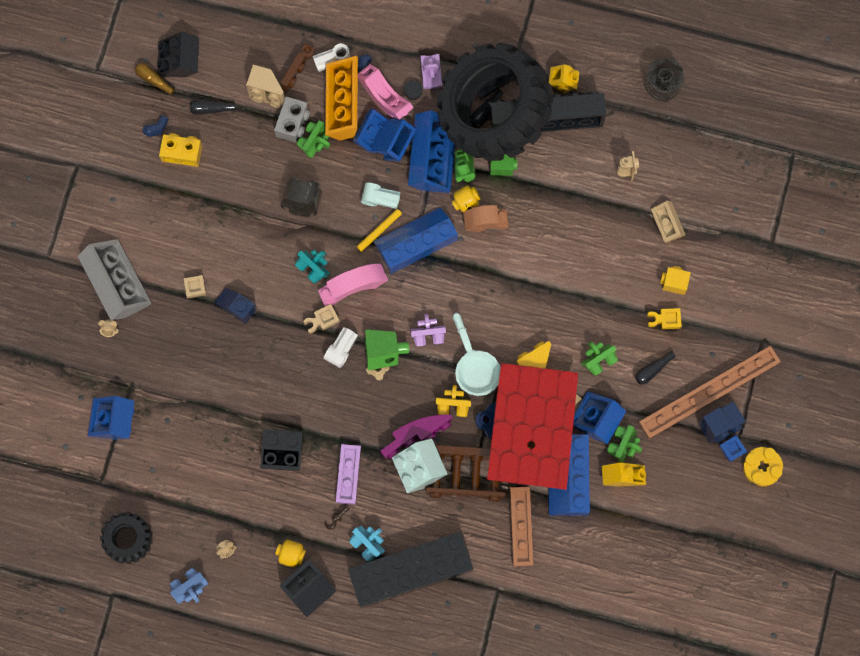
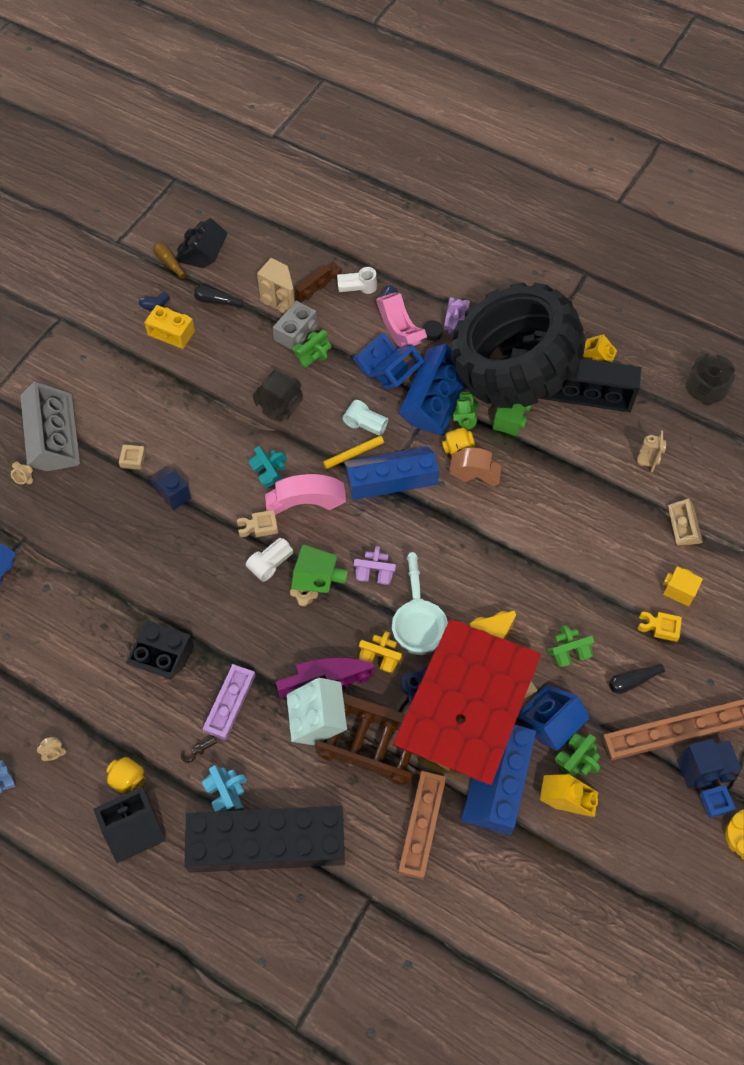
camera: 15 degrees right, 15 degrees down
(341, 98) = (353, 315): light orange slope -> none

